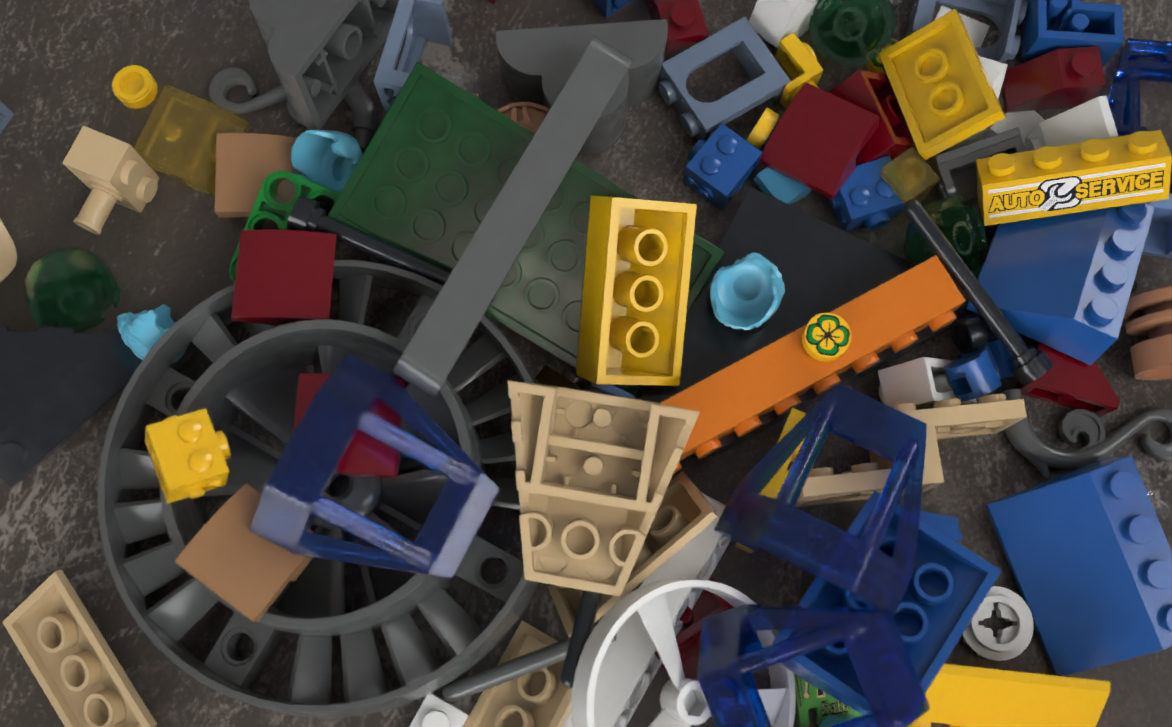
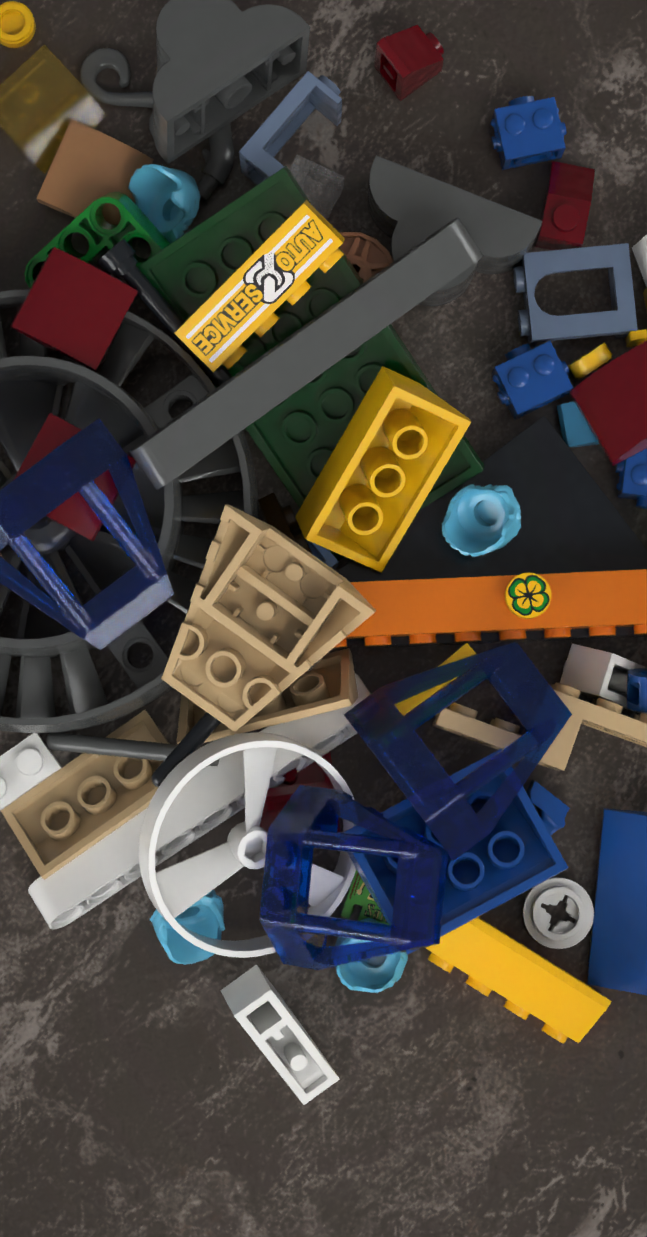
camera: 20 degrees right, 10 degrees up
(446, 171) = (260, 286): none -> brick

